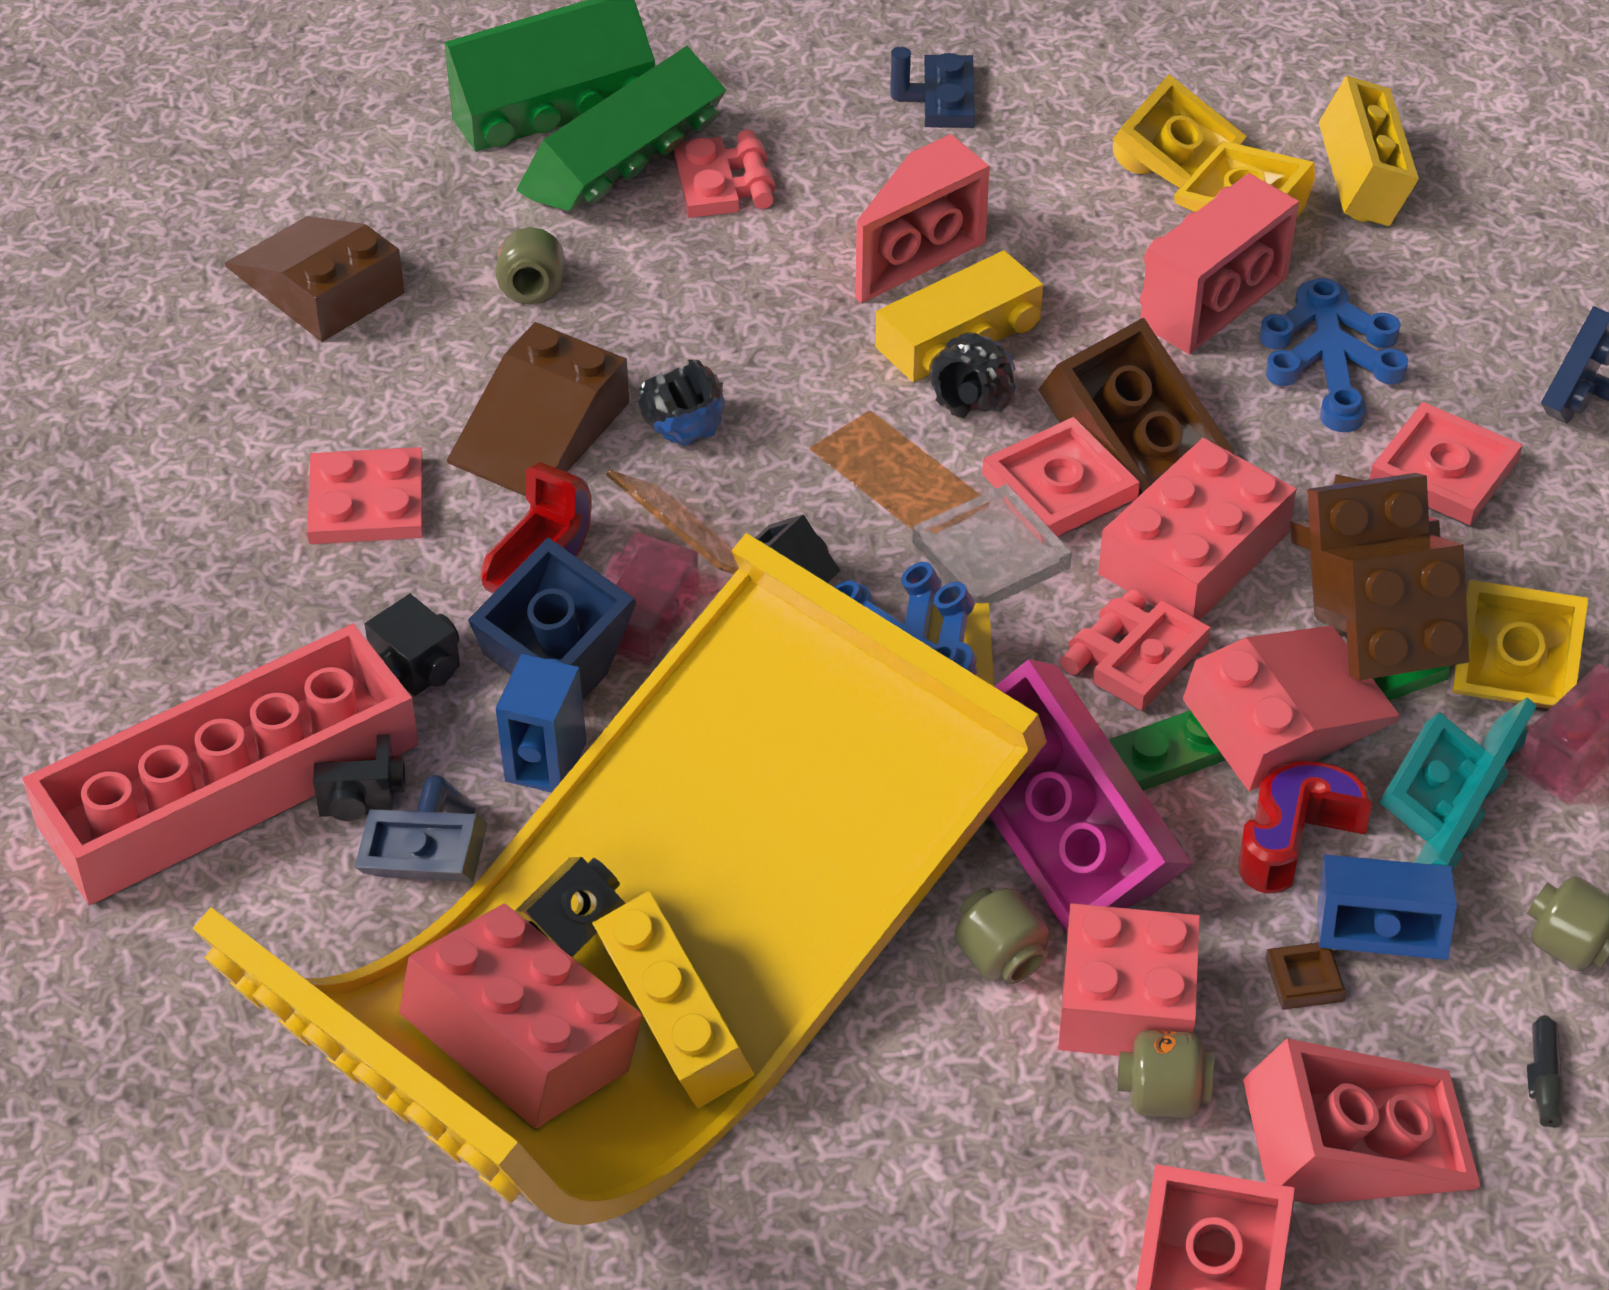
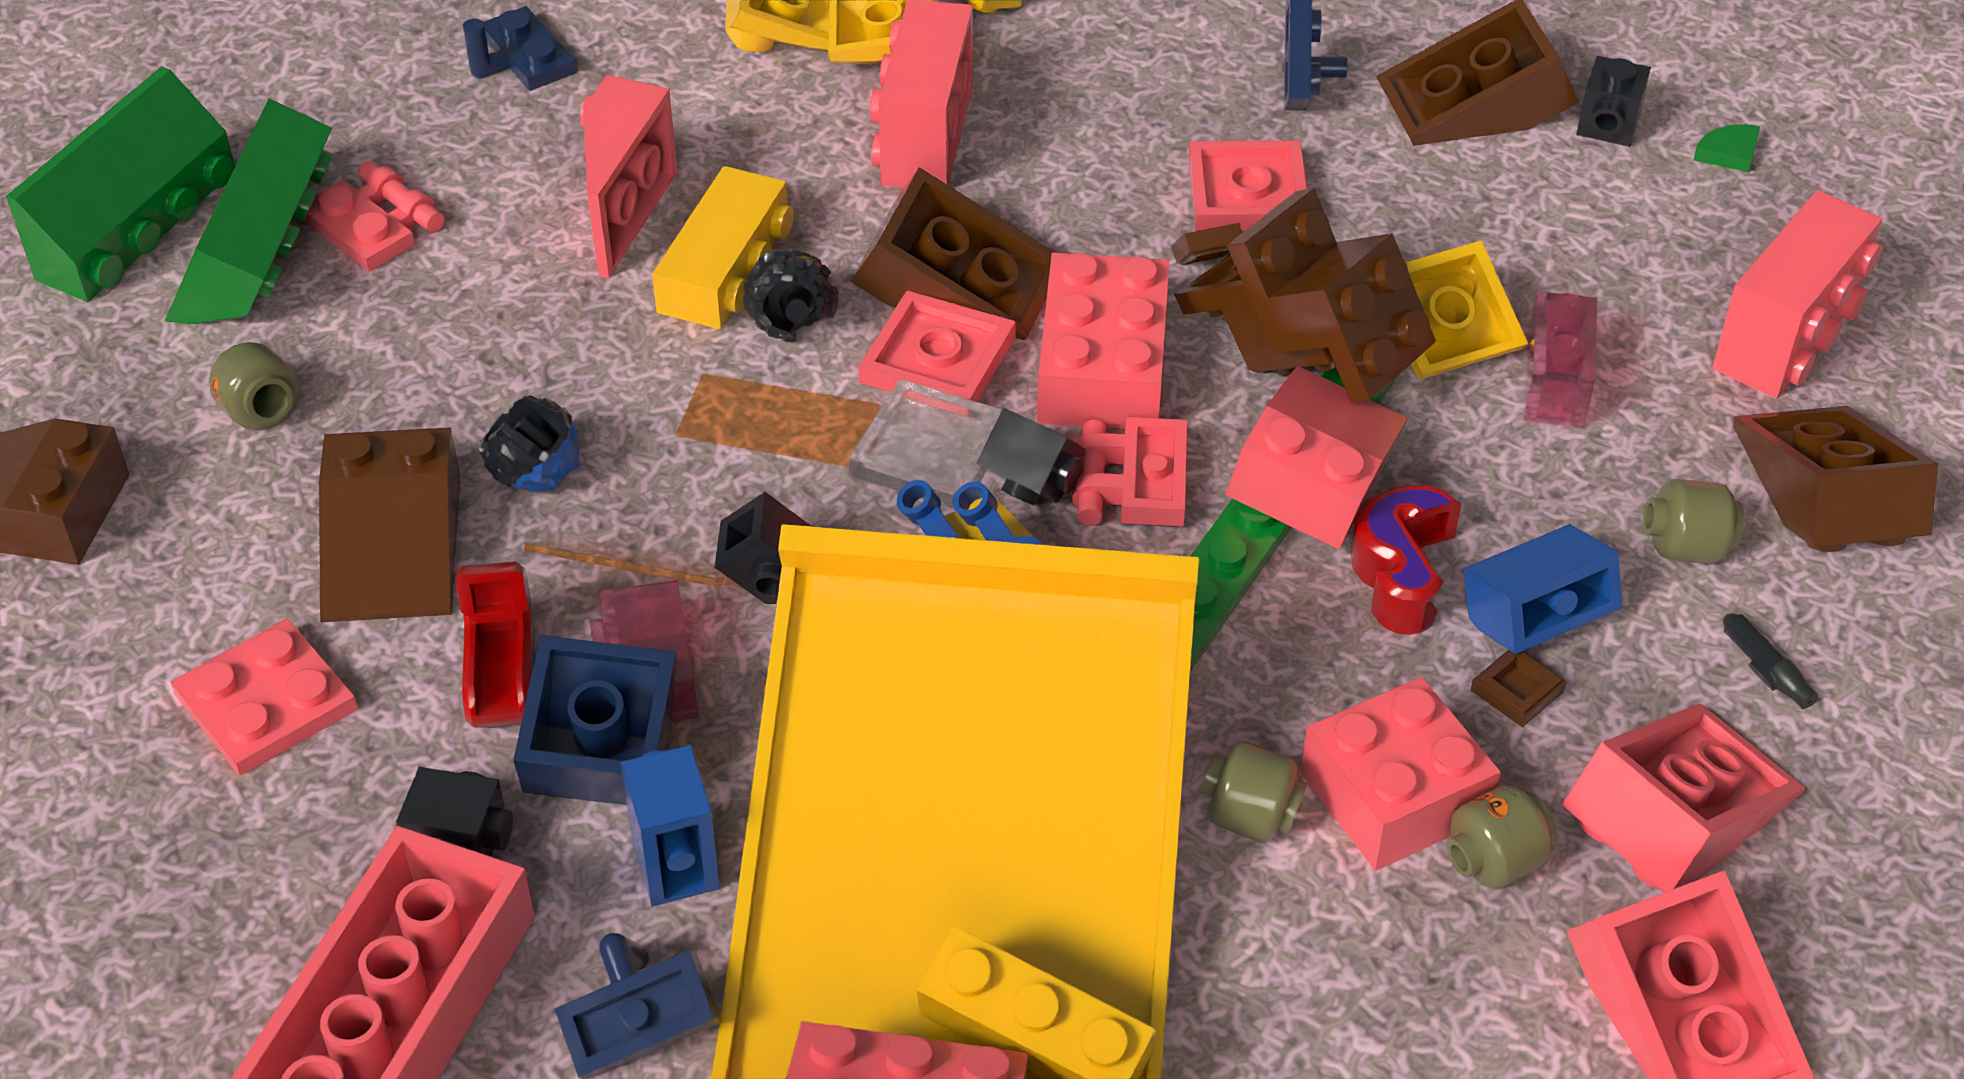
camera: 35 degrees left, 0 degrees up
(353, 787) = (521, 993): black bracket -> none
(551, 908) = (868, 981): black brick -> none
(1052, 594) = (1031, 458): none -> black brick
(1079, 810) = (1252, 651): dark pink slope -> none
(1326, 304) = (1030, 94): blue plant -> none
(1449, 777) = (1496, 452): teal bracket -> none

